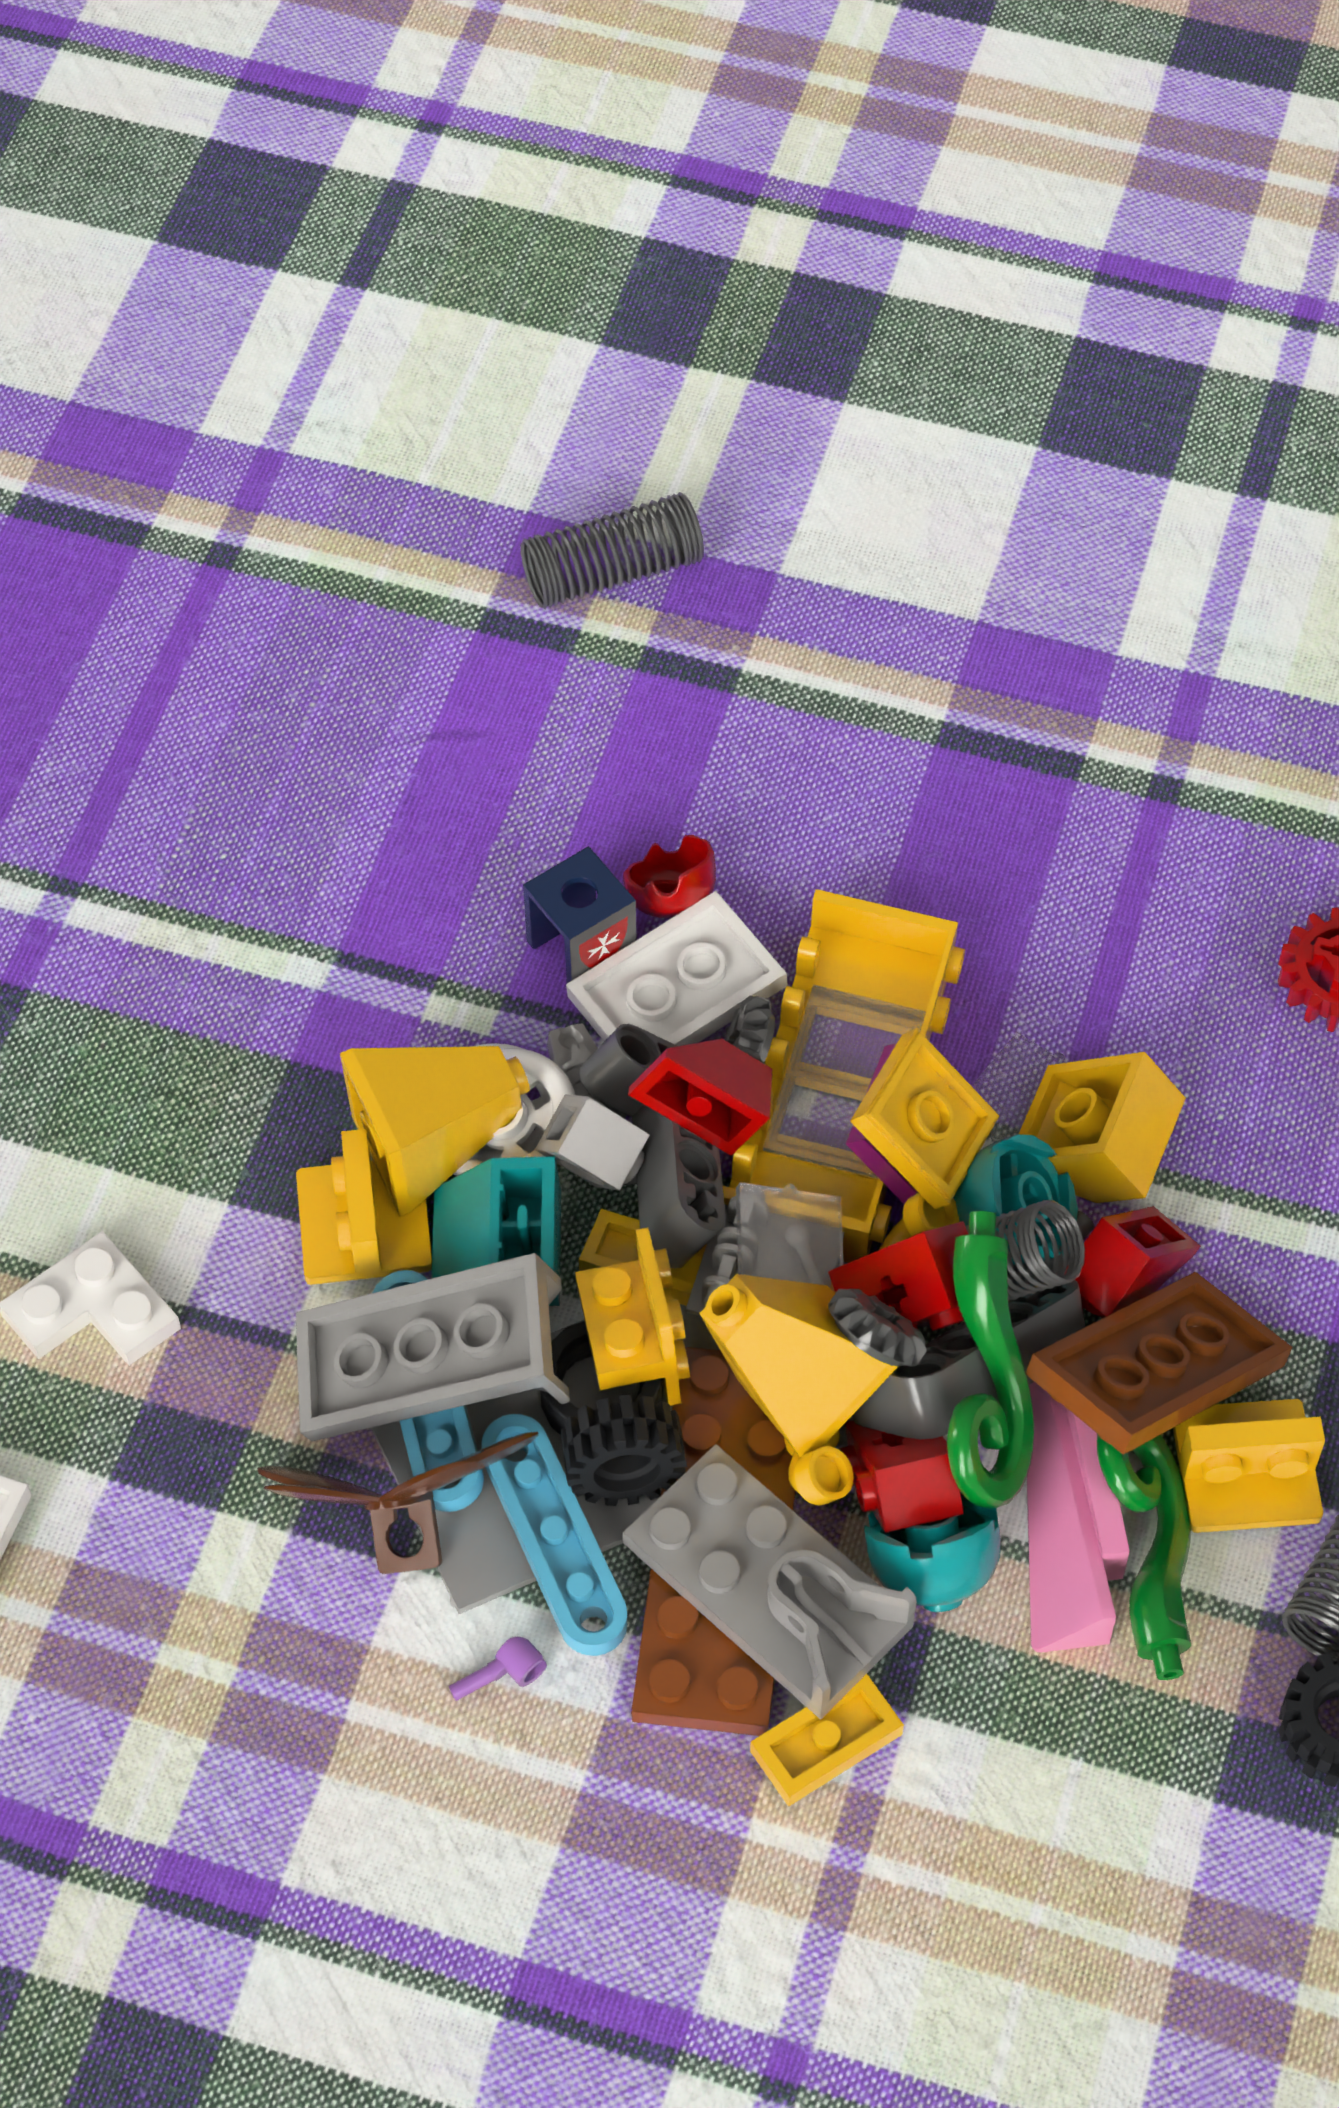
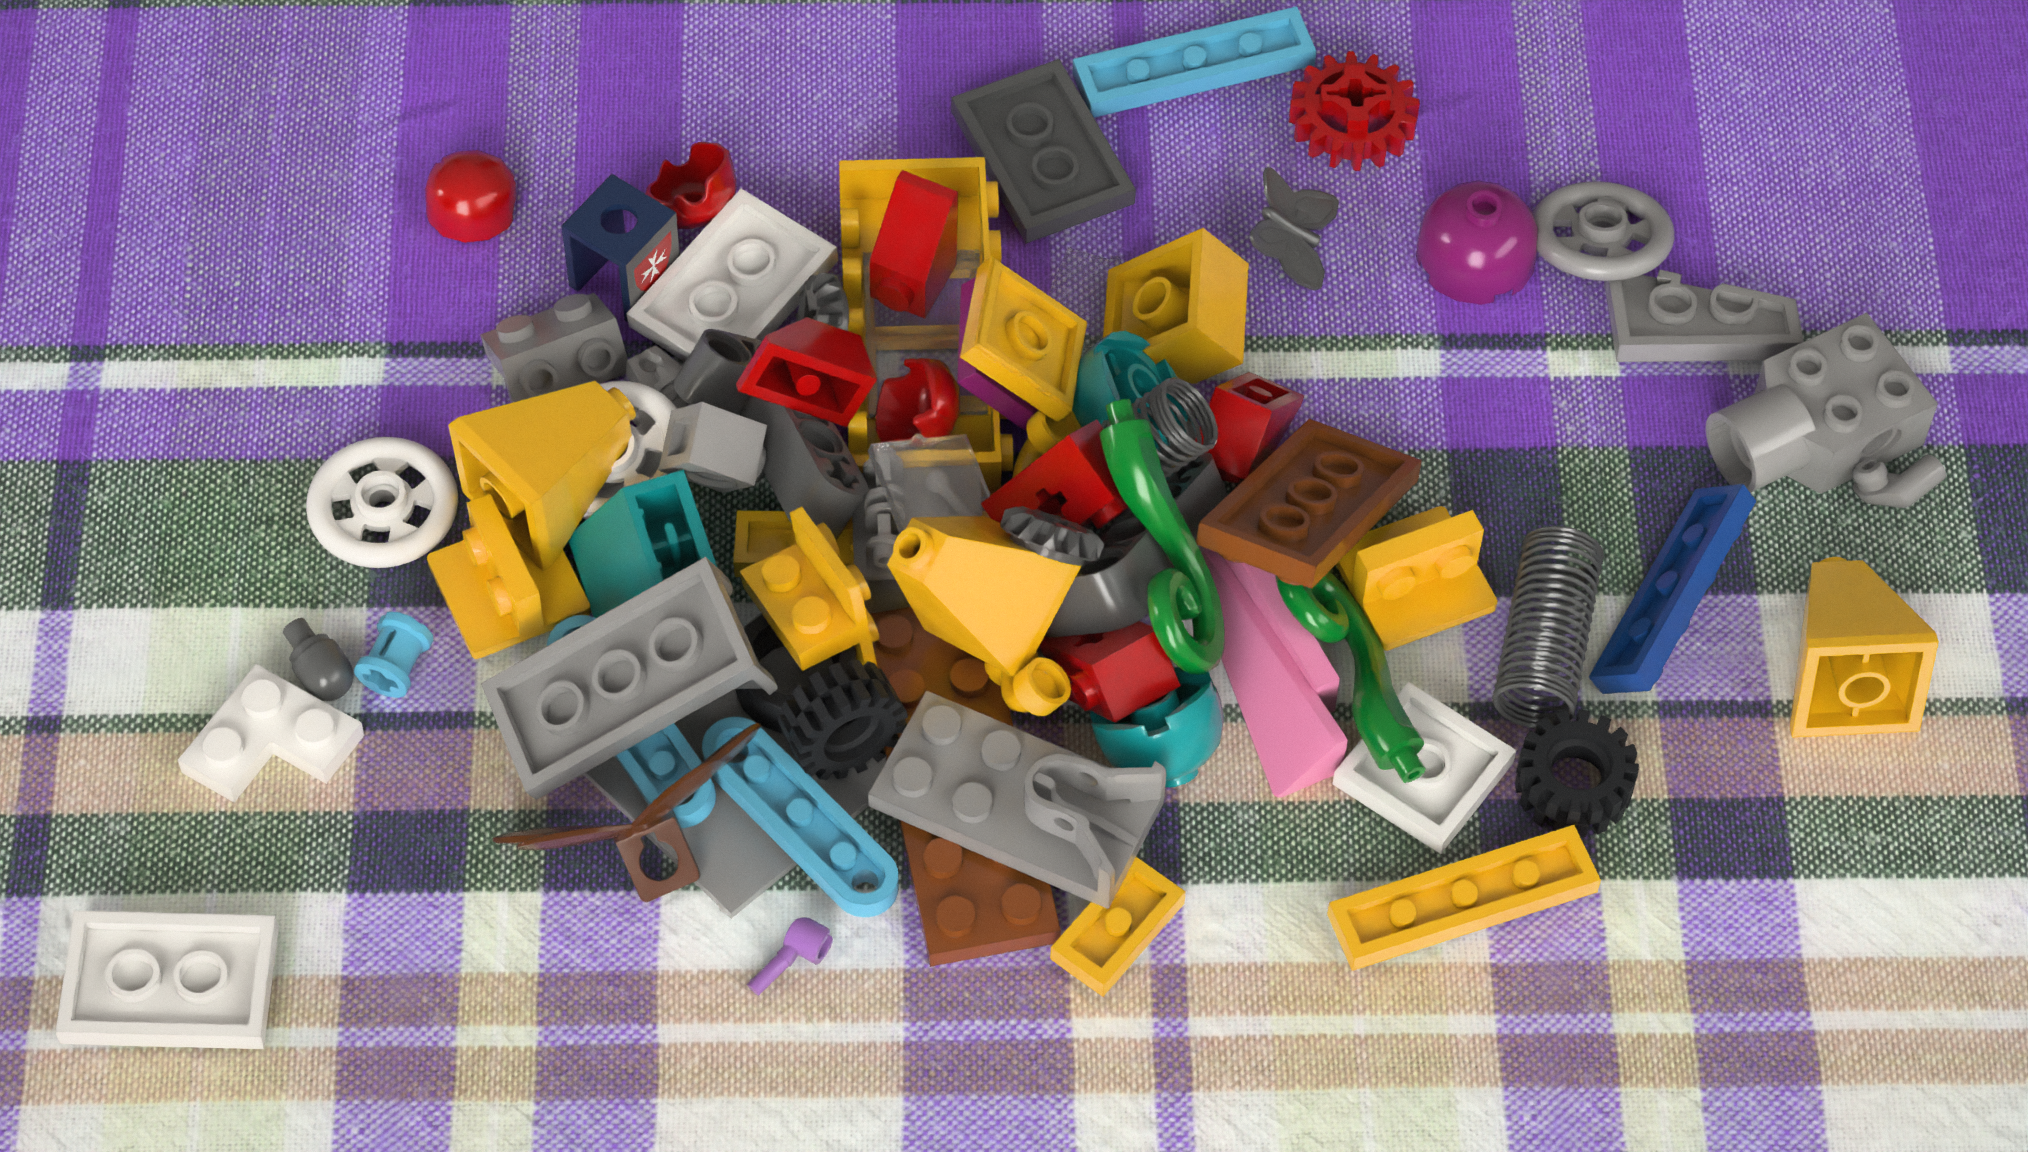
camera: 20 degrees left, 0 degrees up
(161, 1245) = (318, 662): none -> dark grey cylinder
(231, 1258) = (393, 654): none -> medium azure bush
(283, 1150) = (391, 458): none -> white plate
(464, 830) = (470, 196): none -> red hair
(490, 1001) = (557, 347): none -> light grey bracket
(808, 1152) = (918, 402): none -> red hair
(856, 994) = (915, 245): none -> red slope
(1023, 930) = (1043, 150): none -> dark grey plate
(1185, 1815) = (1463, 897): none -> yellow plate
(1203, 879) = (1194, 62): none -> medium azure plate
(1222, 1677) = (1460, 772): none -> white plate
(1238, 1071) = (1287, 228): none -> dark grey piece

